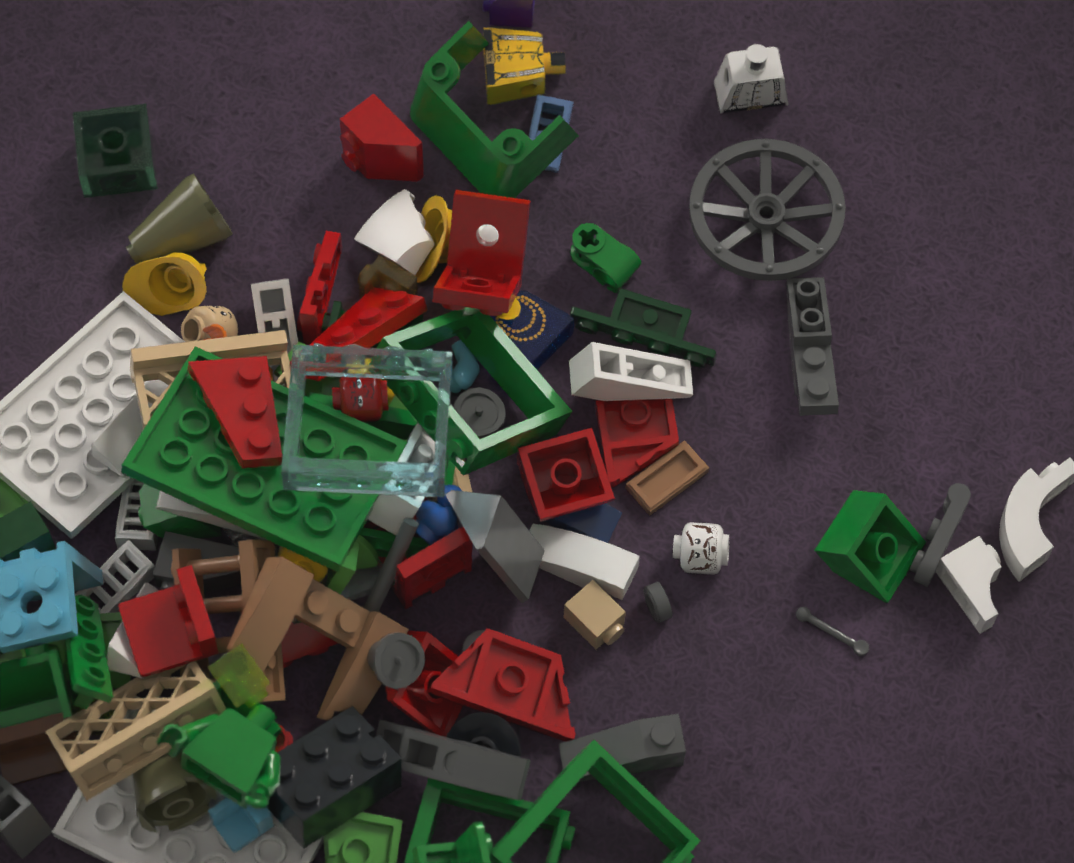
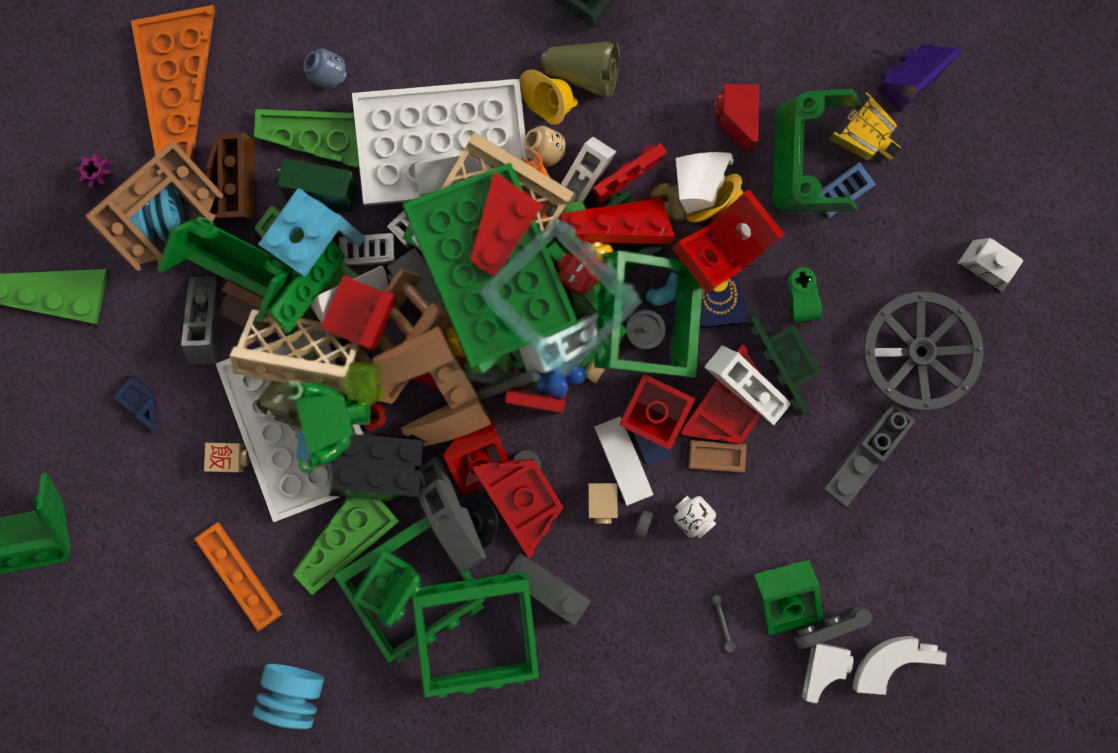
camera: 45 degrees right, 20 degrees up
(396, 660) = (463, 439): dark grey piece -> none
(500, 538) = (578, 422): dark grey slope -> none

